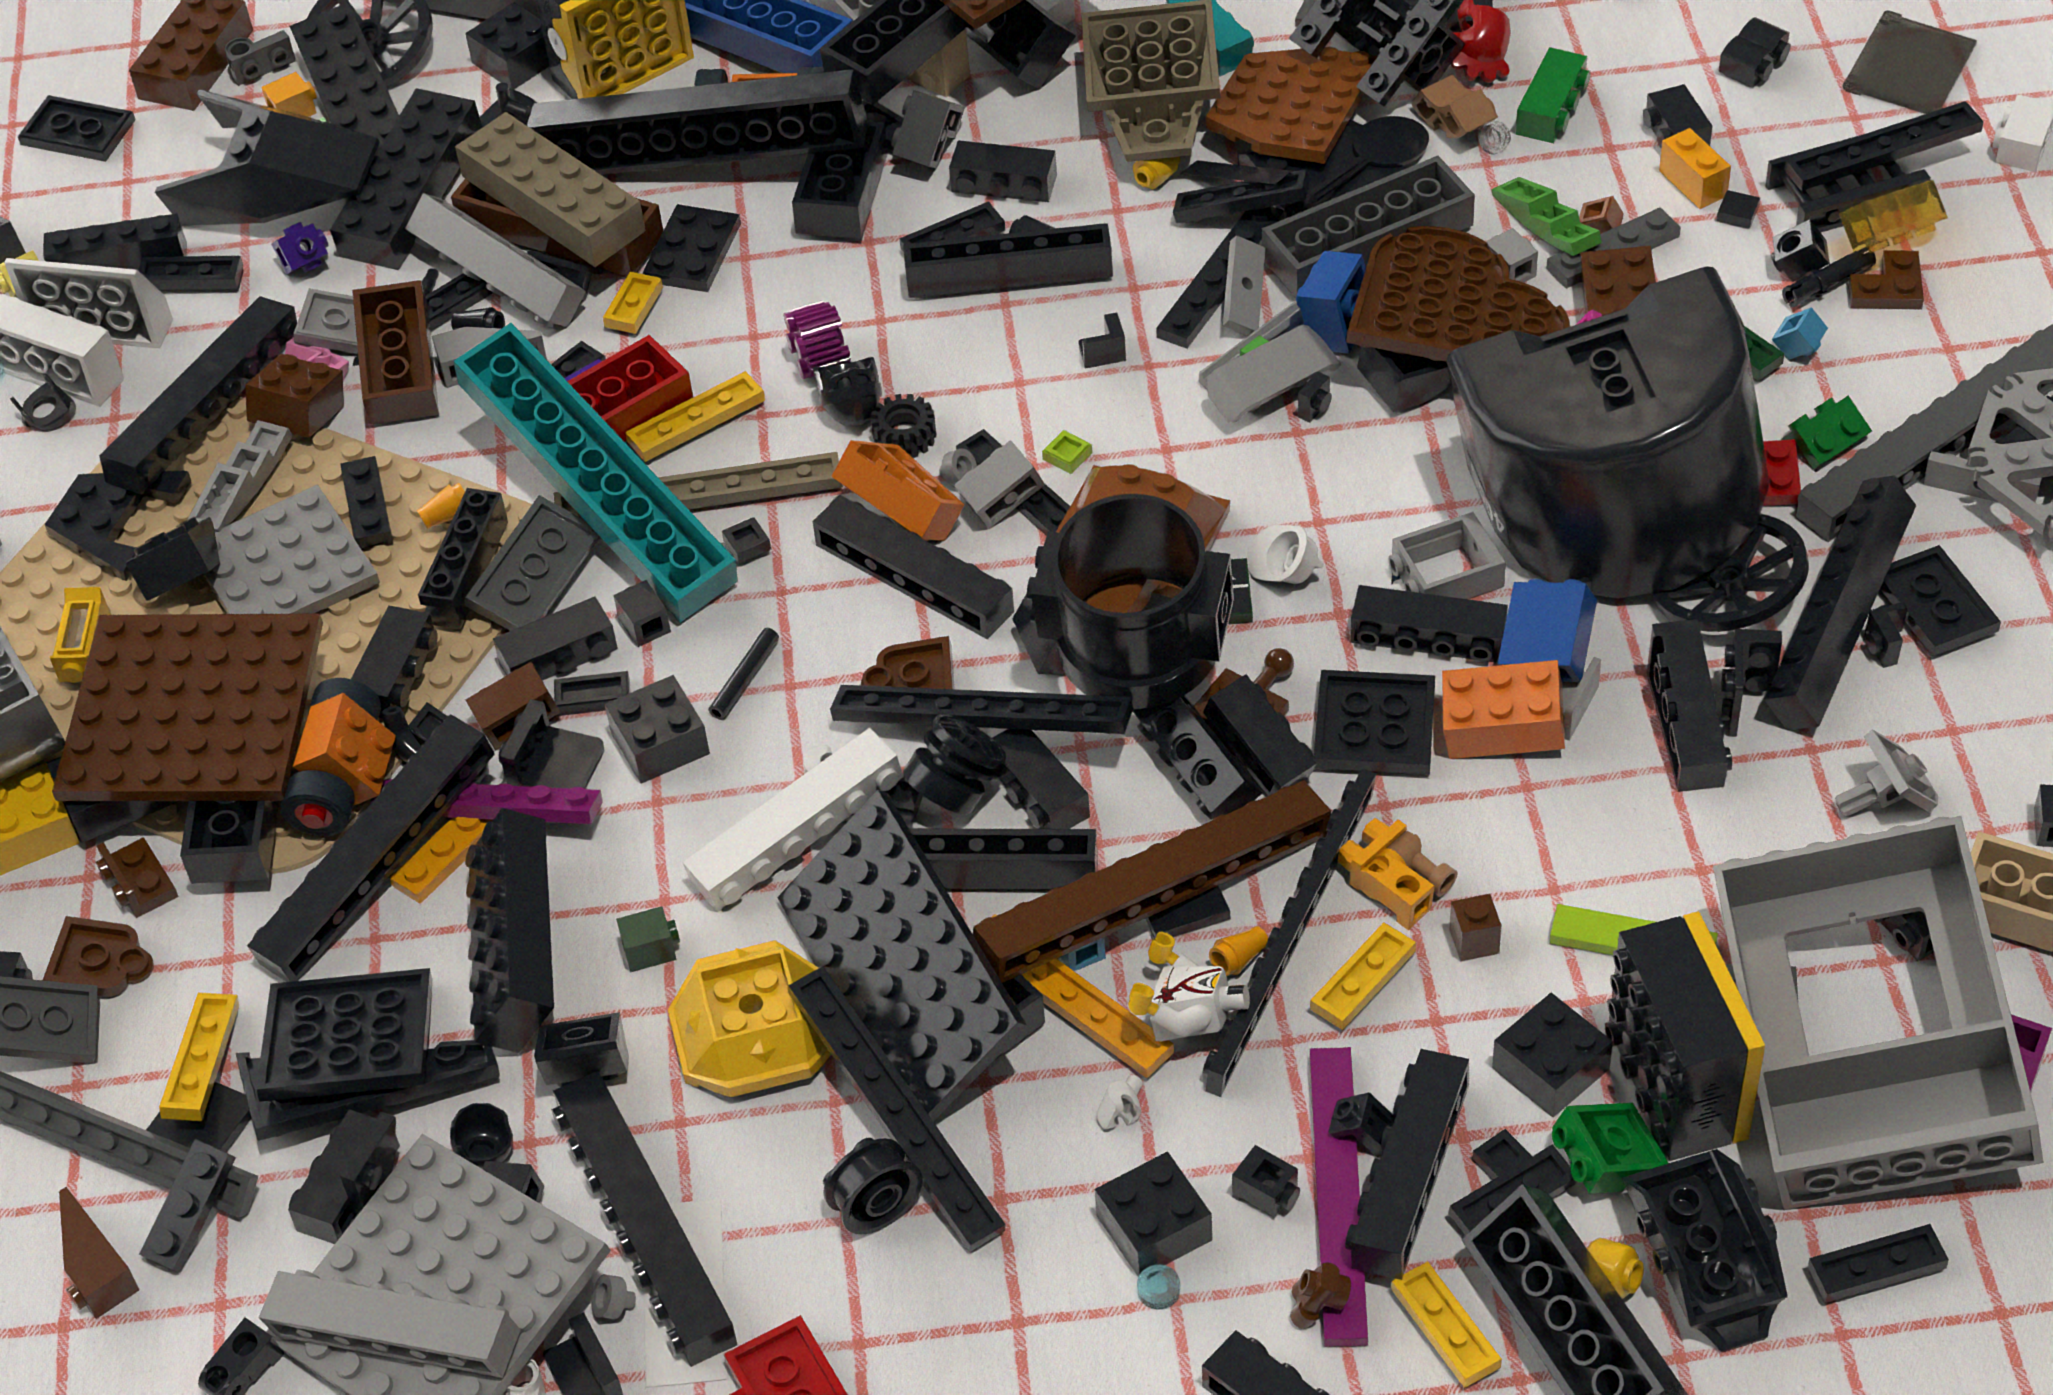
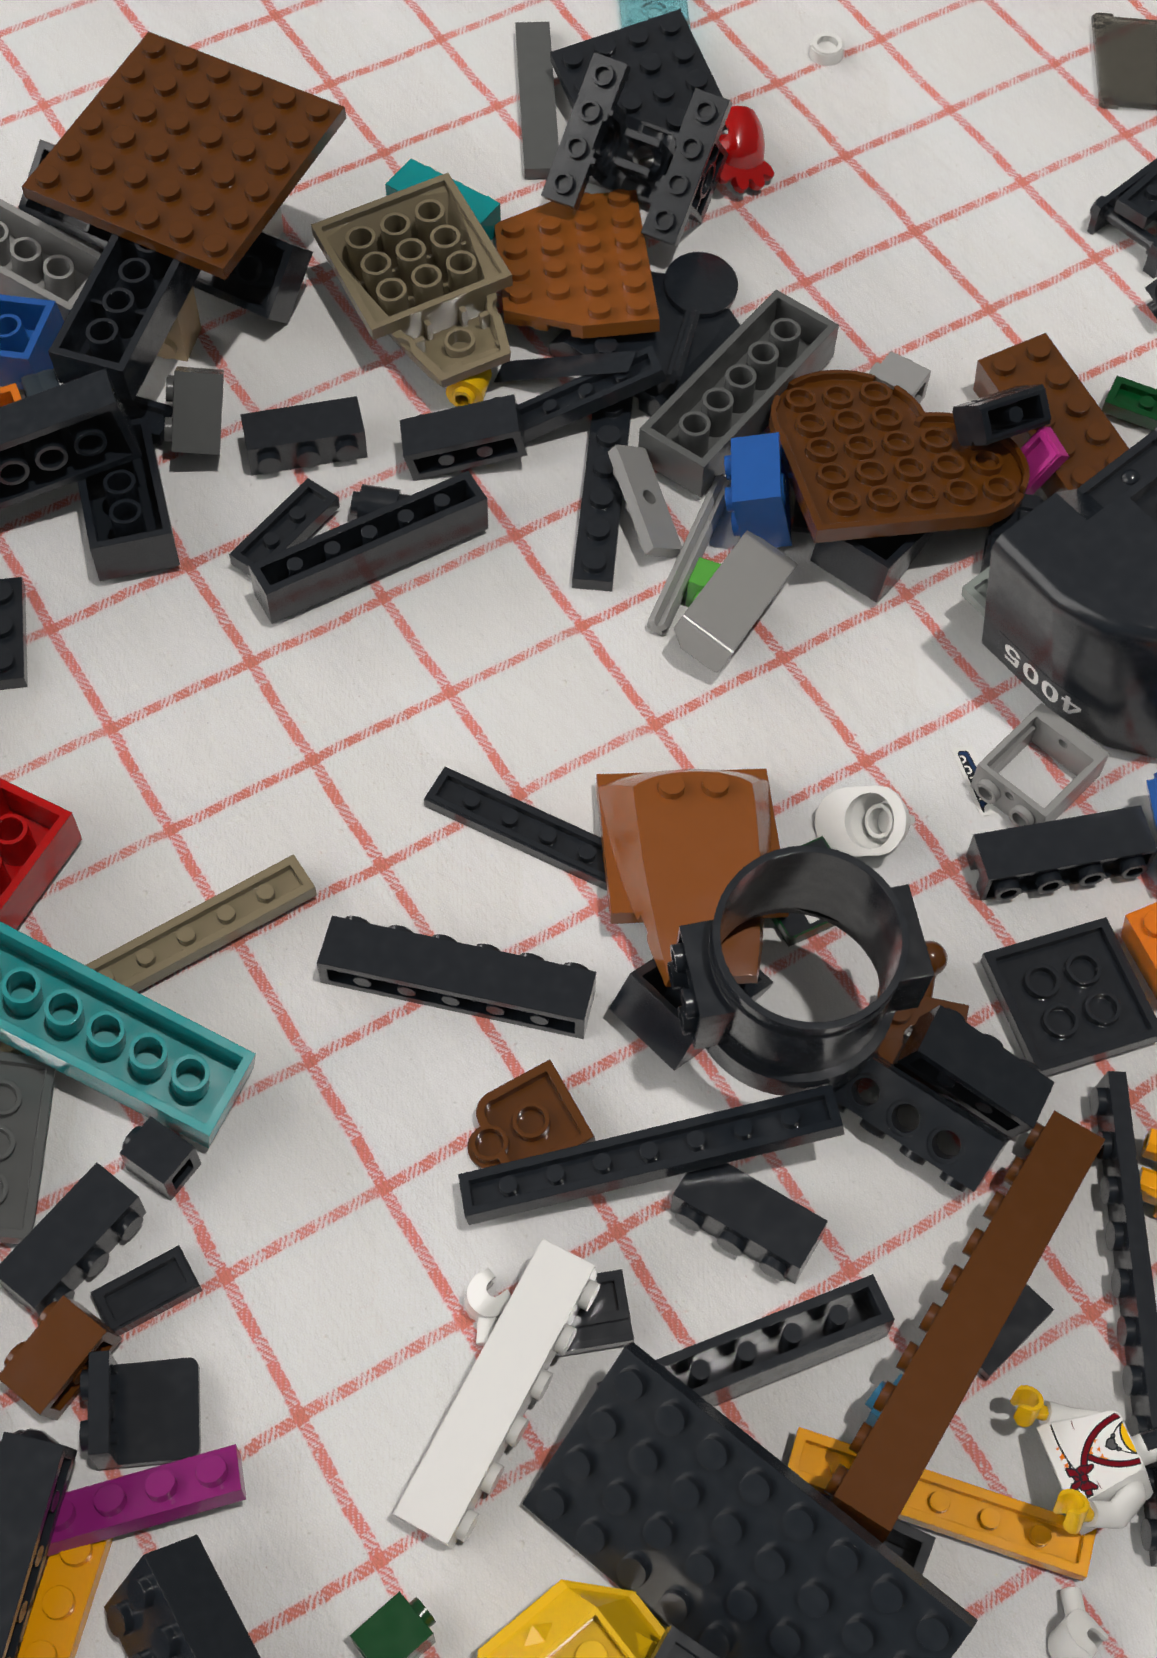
camera: 30 degrees left, 10 degrees up
(657, 729) = (259, 1319): black brick -> none
(695, 416) = (94, 861): yellow plate -> none
(743, 673) = (323, 1195): black piece -> none
(746, 540) = (239, 1008): black plate -> none
(816, 337) = (202, 716): magenta brick -> none
(849, 390) = (271, 768): black helmet -> none
(899, 488) = (398, 883): orange wedge -> none
(901, 412) = (351, 814): black tyre -> none
(954, 764) = (661, 1245): black wheel -> none
(956, 465) = (443, 828): light grey tile -> none
(999, 484) = (507, 836): light grey brick -> none
(1067, 452) = (551, 764): lime tile -> none
(1104, 348) = (528, 617): black panel -> none
(1125, 202) = (463, 437): none -> black brick
(1238, 950) = (1092, 1362): light orange cone -> none
(1314, 397) = (790, 612): black plate -> none
(1453, 107) = (749, 230): medium nougat brick -> none
(1500, 134) = (803, 250): clear plate -> none
(1543, 215) = (897, 323): bright green slope -> none
(1552, 95) = (836, 188): green brick -> none
(1559, 290) = (1001, 415): none -> black brick
(1601, 214) = (952, 310): dark orange slope -> none
(1649, 229) = (988, 336): dark grey plate -> none
(1673, 112) = (974, 184): black brick -> none
(1694, 168) = (1021, 231): light orange brick -> none
(1738, 209) = (1081, 264): black tile -> none
(1754, 52) = (1002, 89): black brick -> none

